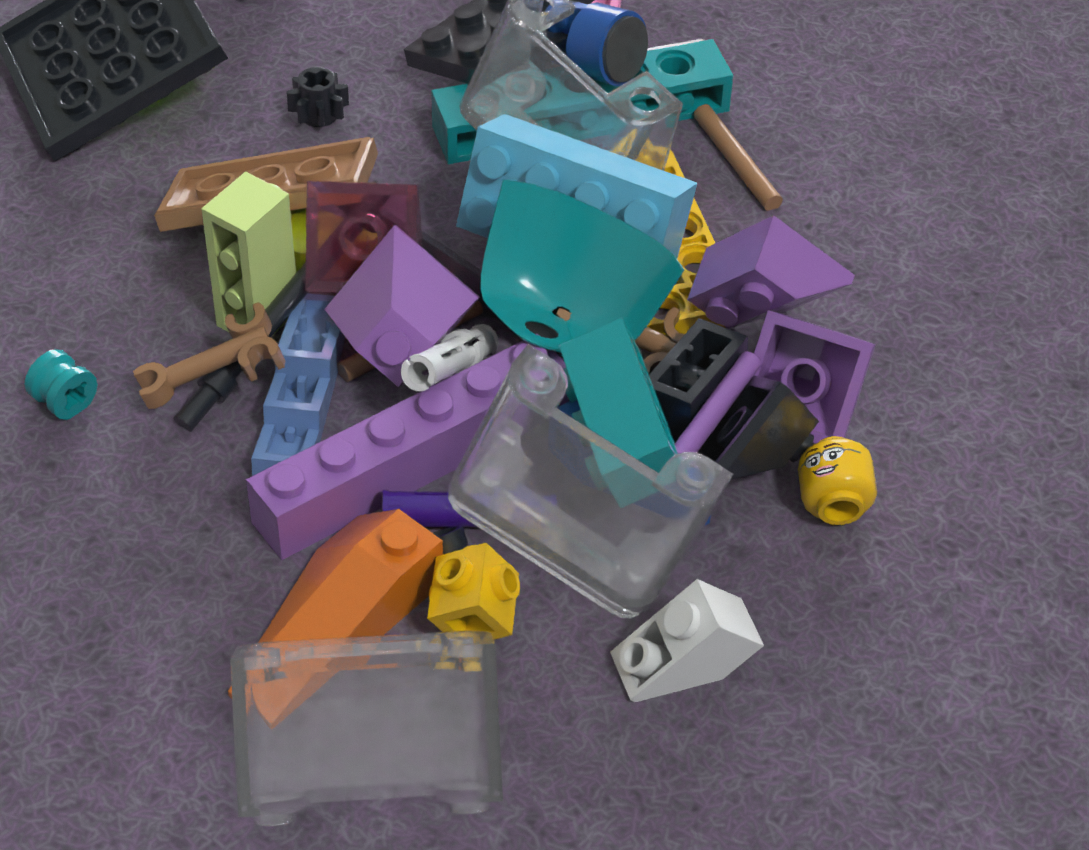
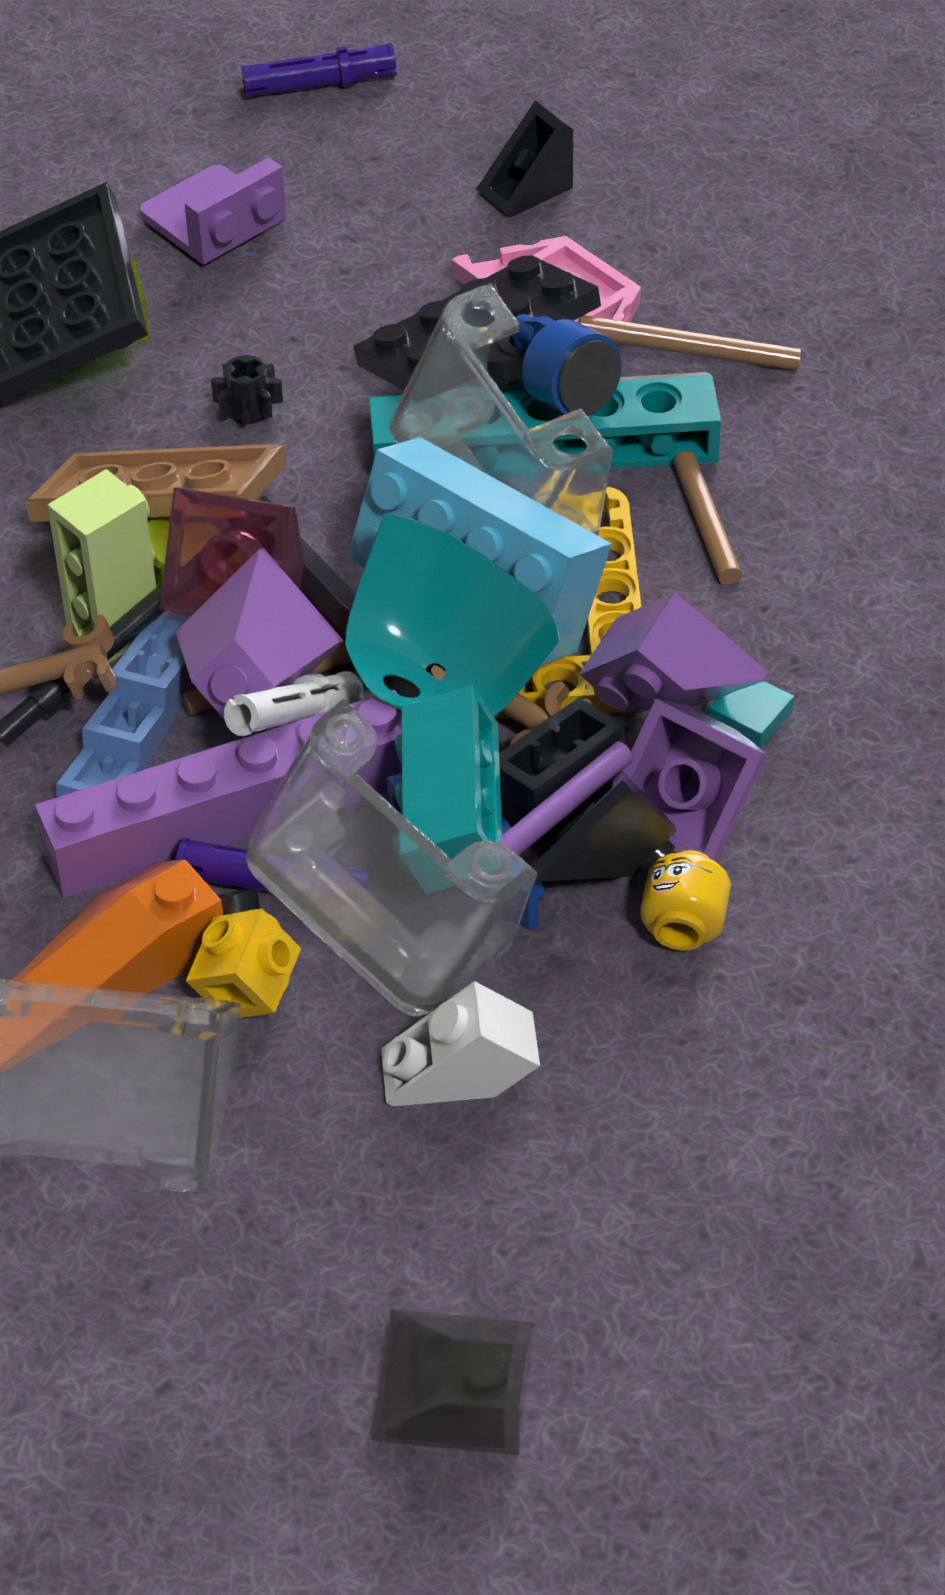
camera: 15 degrees right, 0 degrees up
(701, 17) = (695, 343): none -> medium nougat bar
(833, 311) = (754, 711): none -> tile

